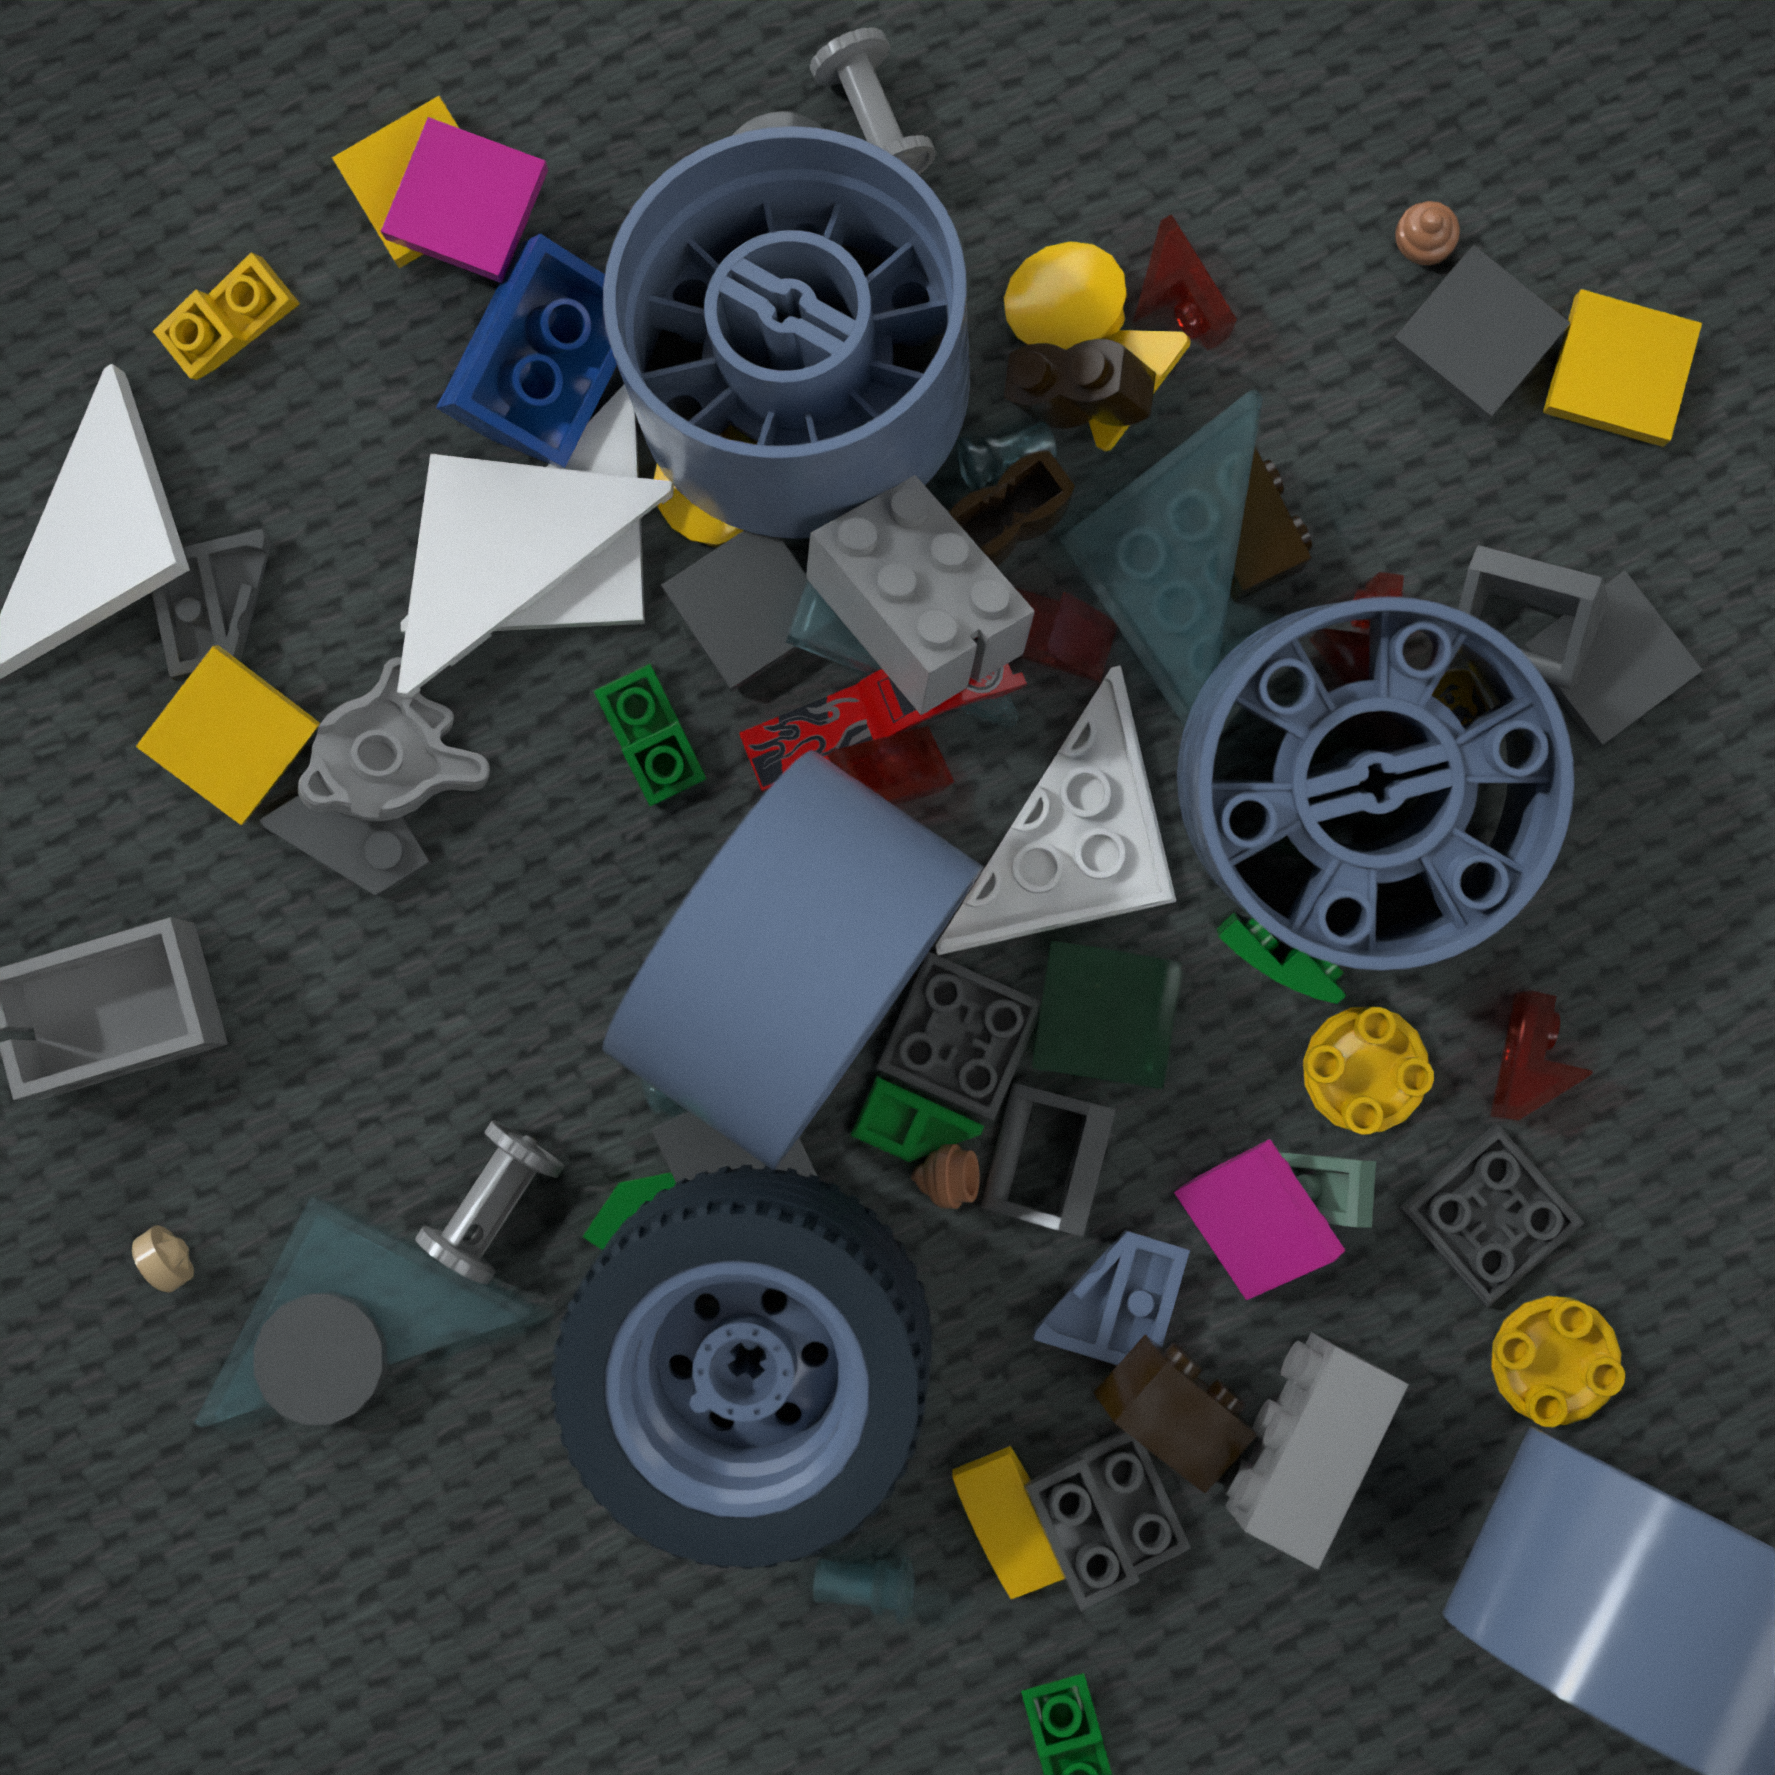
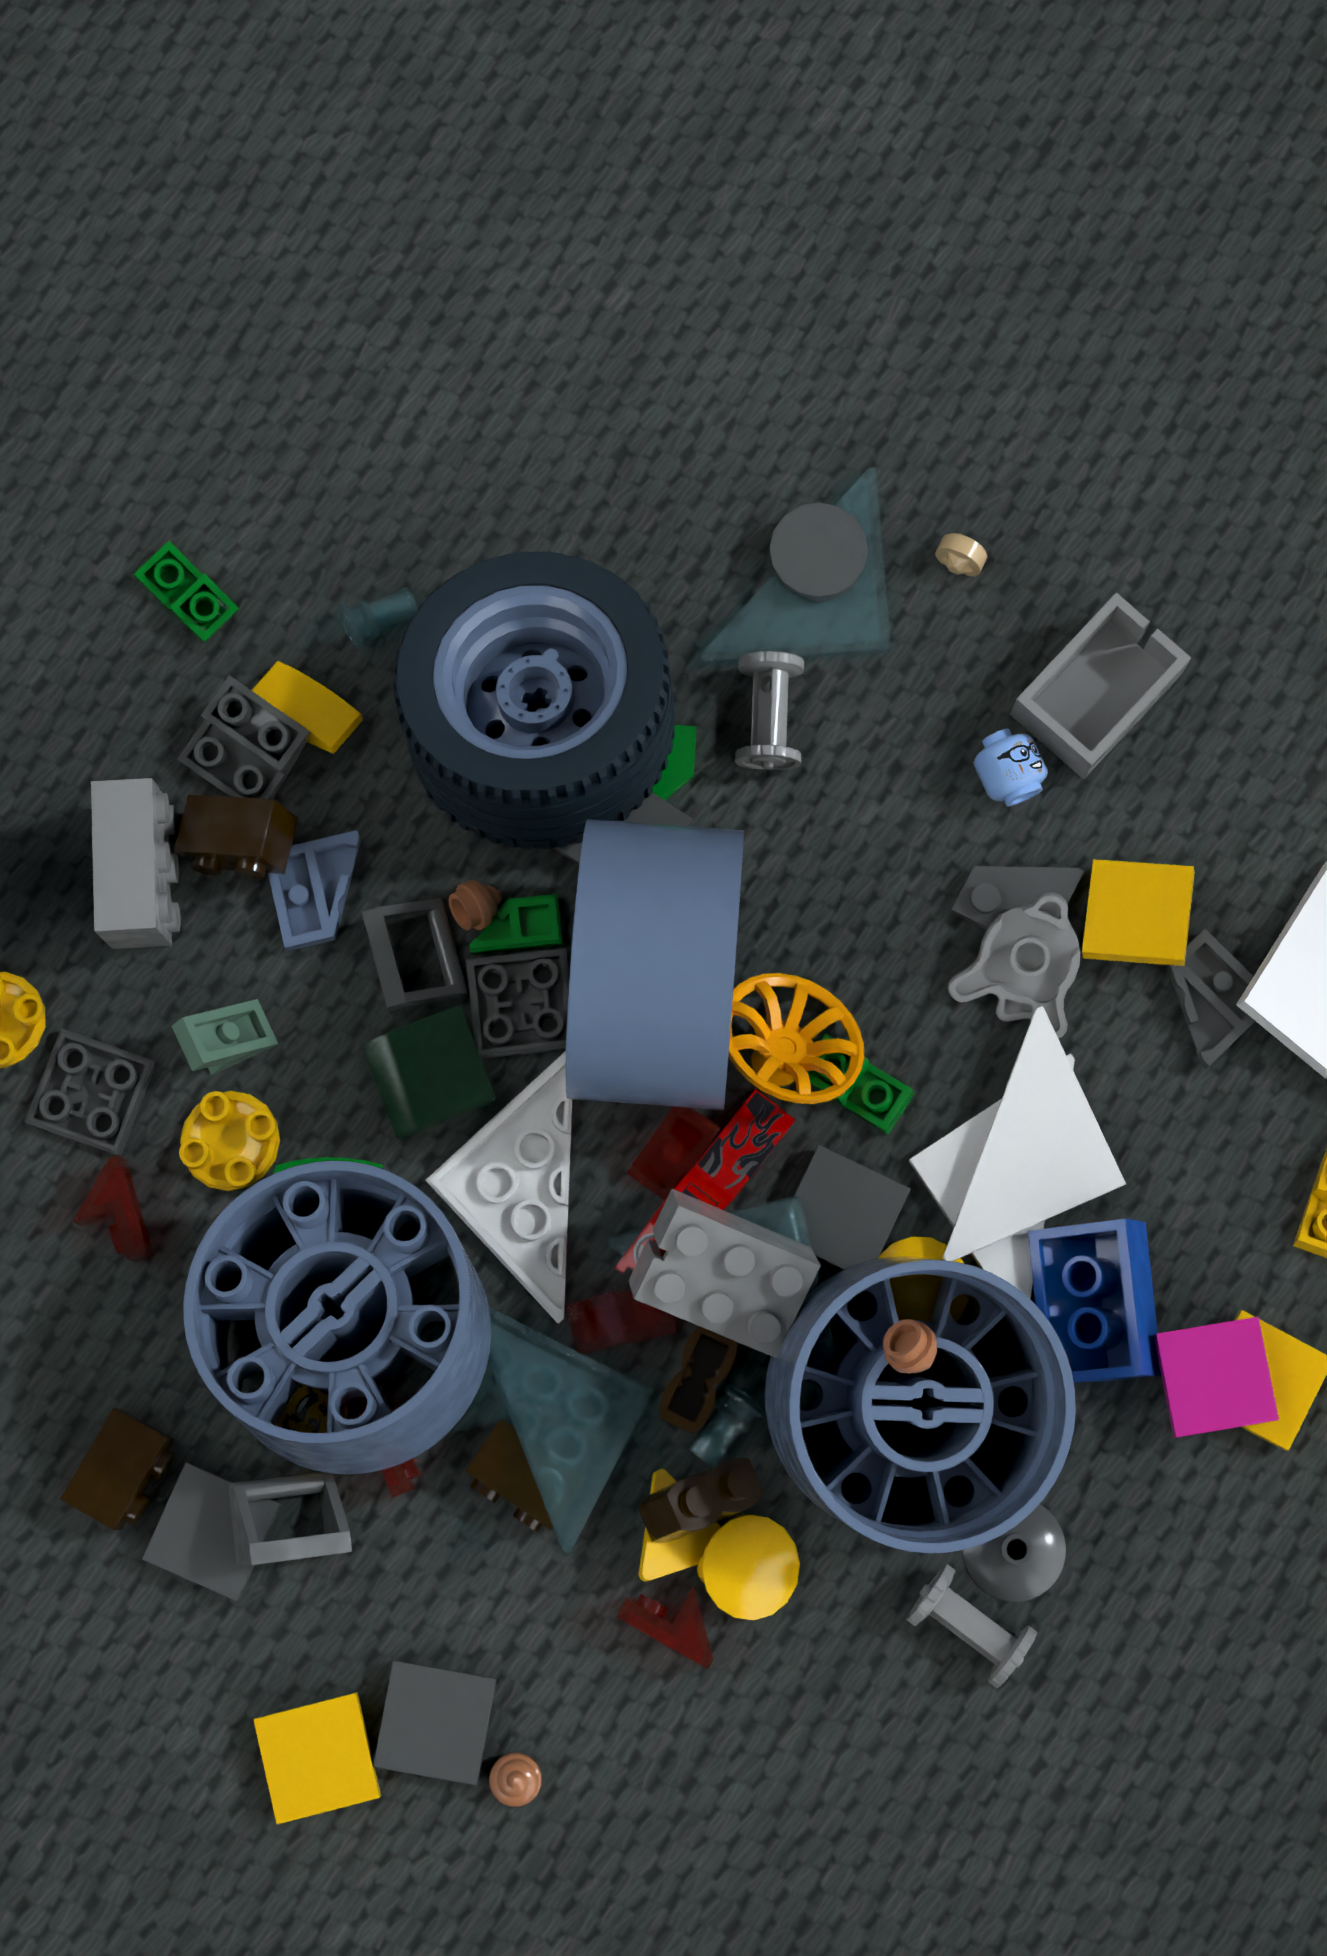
camera: 150 degrees right, 5 degrees down
(264, 978) = (1010, 767): none -> light blue head
(701, 805) = (786, 1050): none -> light orange wheel
(770, 361) = (910, 1346): none -> nougat plate
(1259, 1220) = (248, 991): dark pink tile -> none
(1679, 779) = (119, 1469): none -> dark brown brick

